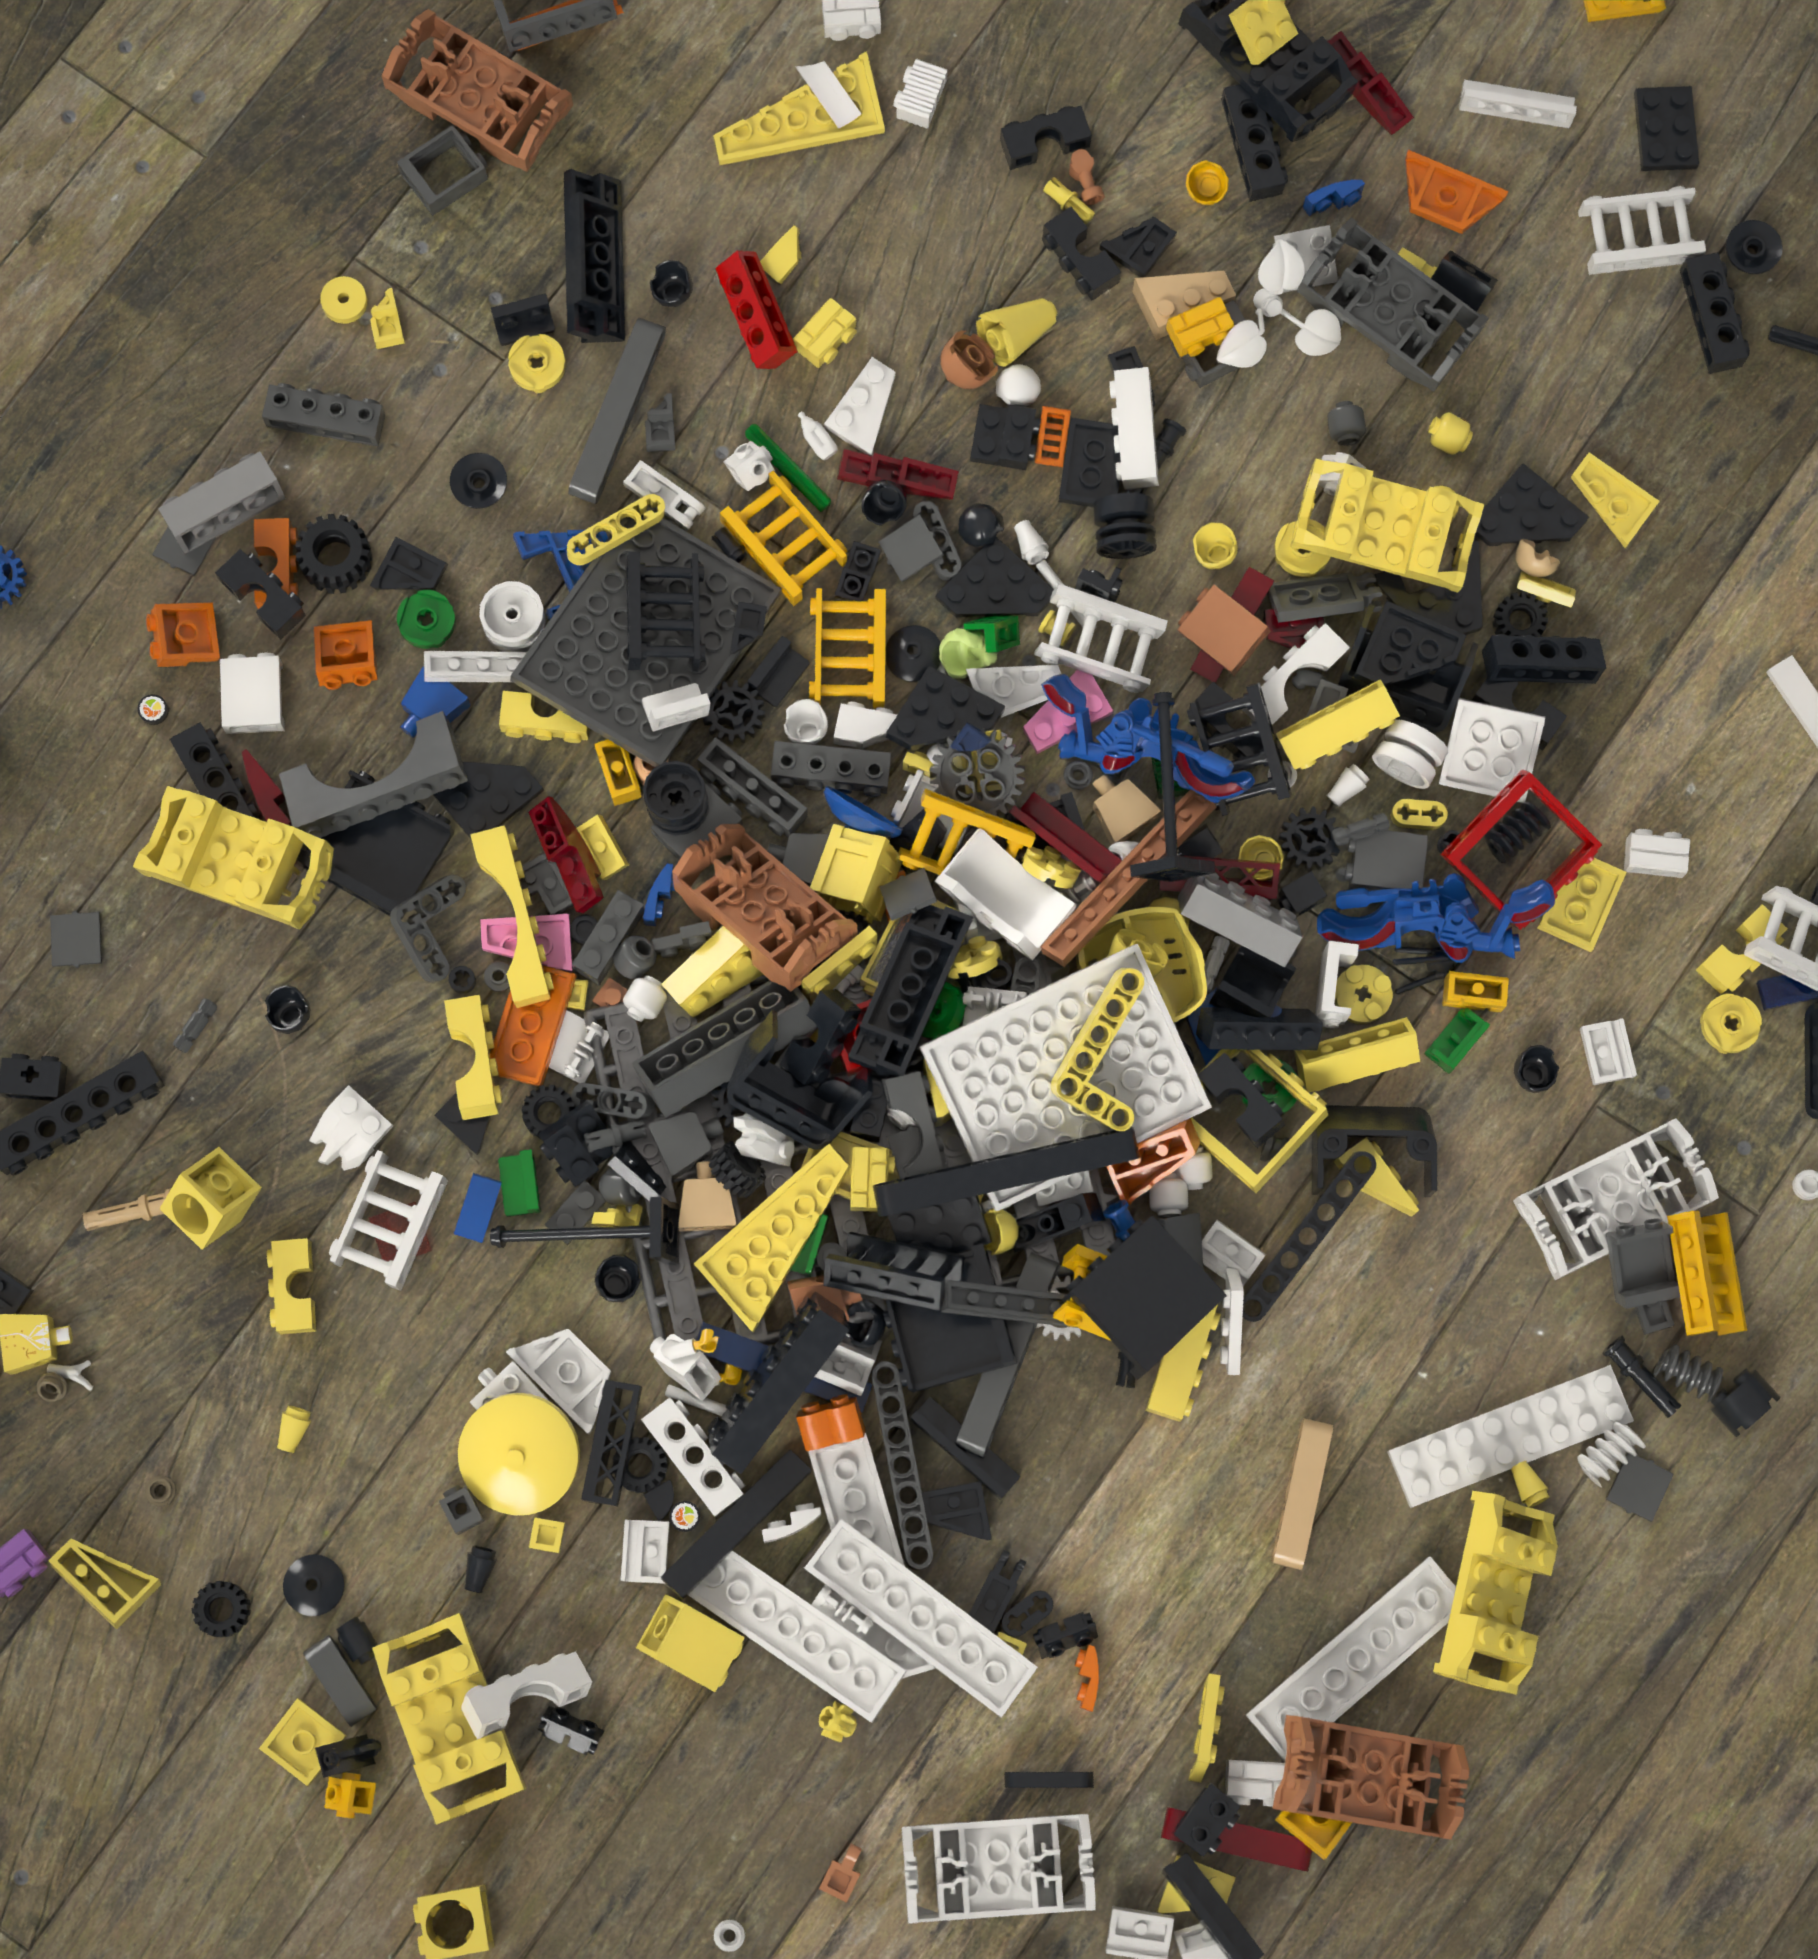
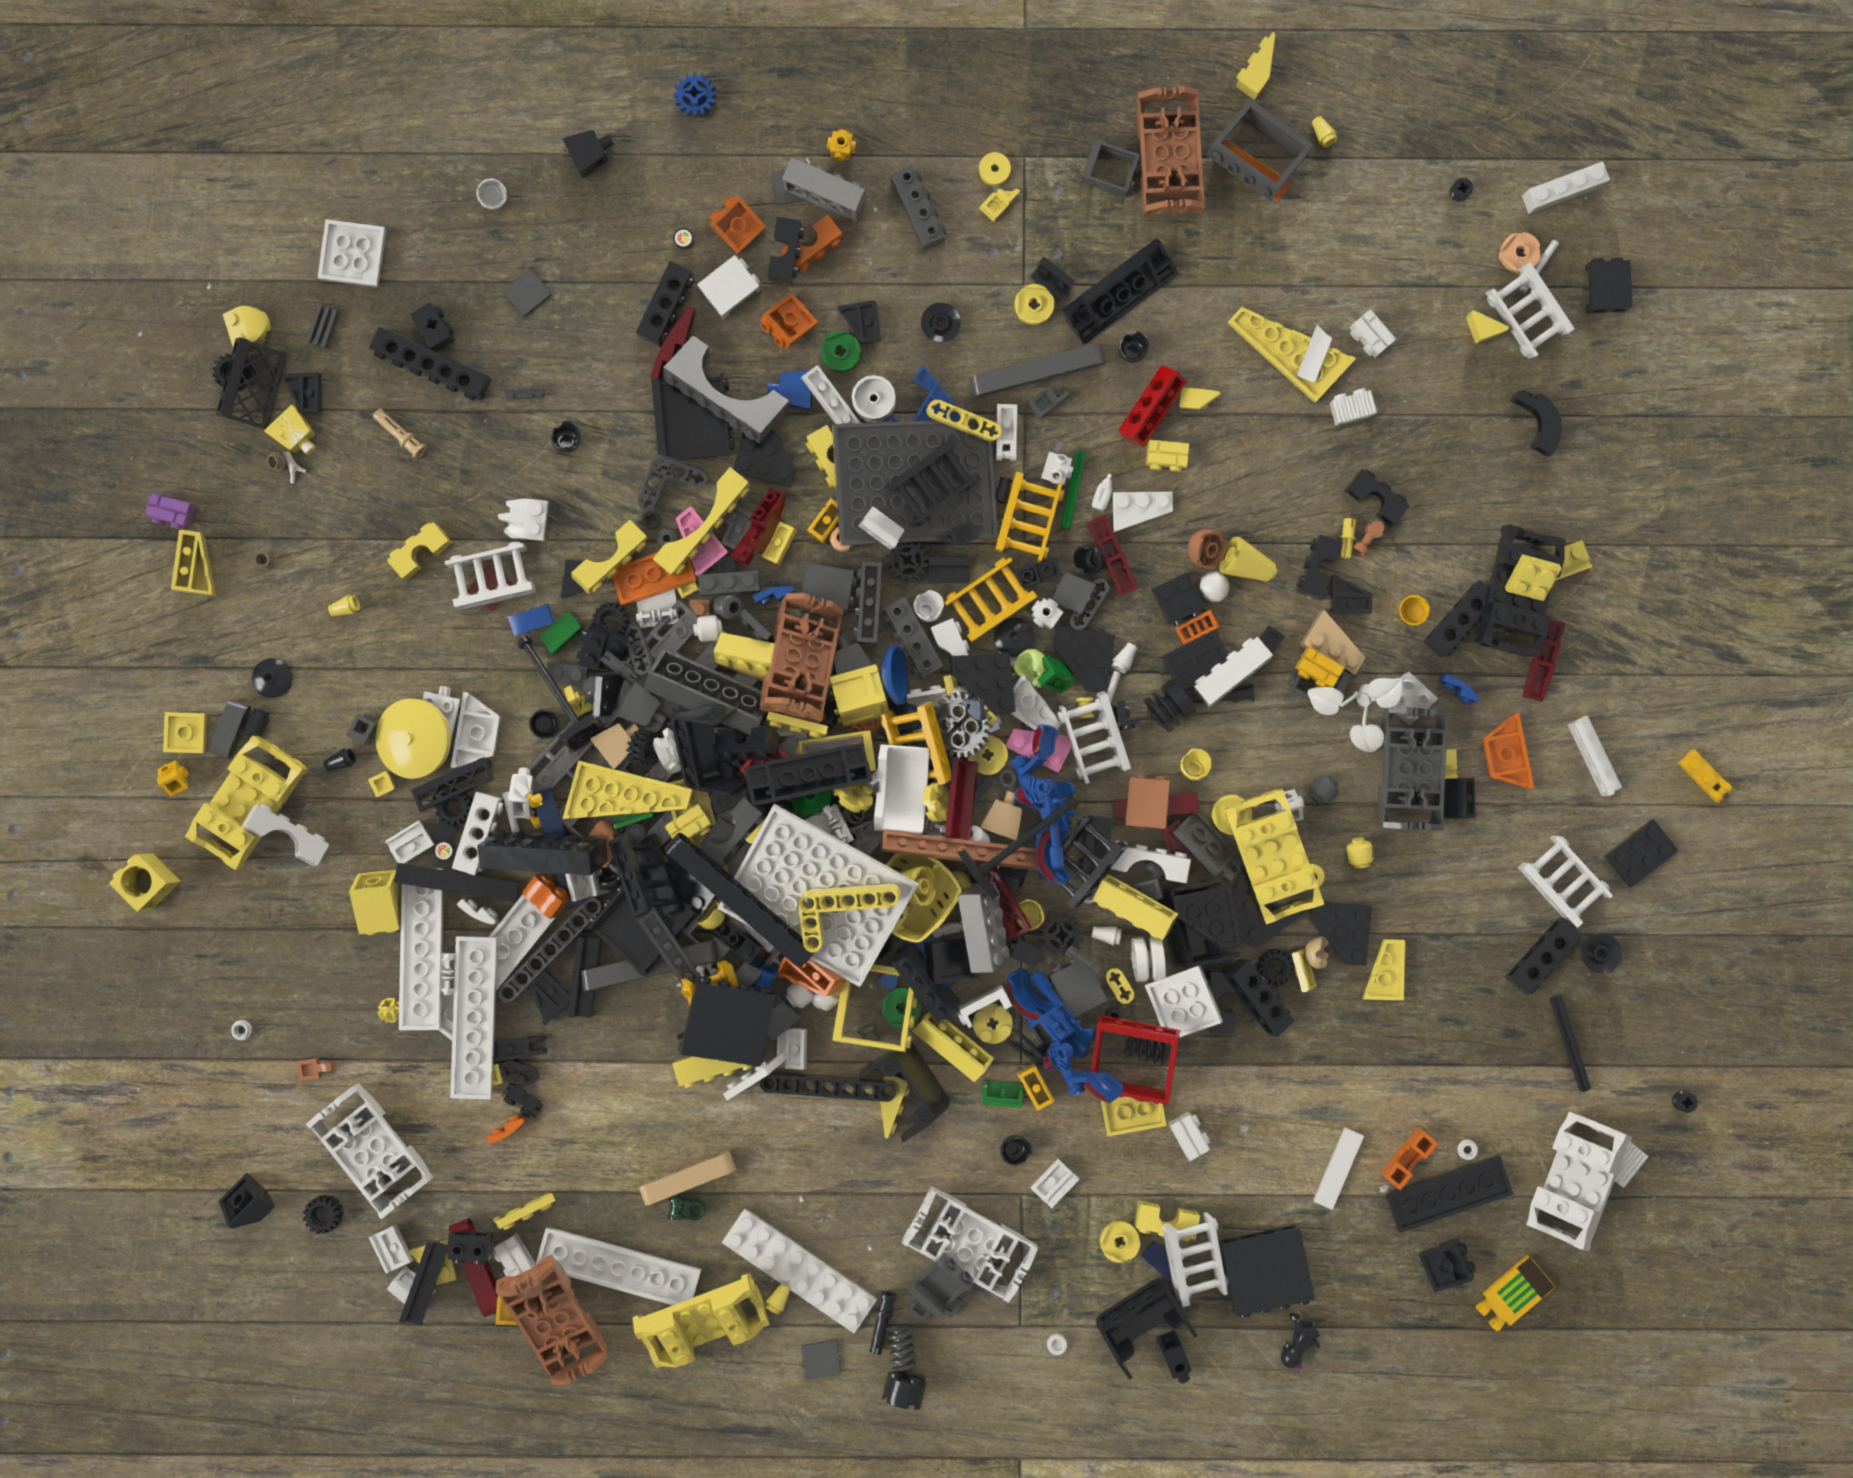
camera: 60 degrees right, 10 degrees up
(184, 450) = (844, 151): none -> yellow brick
(210, 1198) = (431, 472): light yellow brick -> none
(234, 857) = (625, 346): light yellow piece -> none
(234, 1622) = (235, 642): black tyre -> none
(325, 533) = (836, 257): black tyre -> none
(347, 1755) = (192, 761): black hinge -> none
(584, 1733) = (292, 877): black hinge -> none
(670, 784) = (834, 556): black wheel -> none
(908, 894) = (863, 734): dark grey piece -> none
(913, 593) = (1050, 606): none -> white brick
(980, 524) = (1115, 622): black hair -> none
(1048, 1780) = (438, 1144): black beam -> none
(1049, 773) = (997, 760): none -> light yellow plate
(1226, 1078) = (874, 1018): black arch -> none
(1338, 1523) = (682, 1208): none -> clear green piece
(1609, 1452) = (826, 1333): white piece -> none
(1707, 1273) = (961, 1323): yellow fence -> none

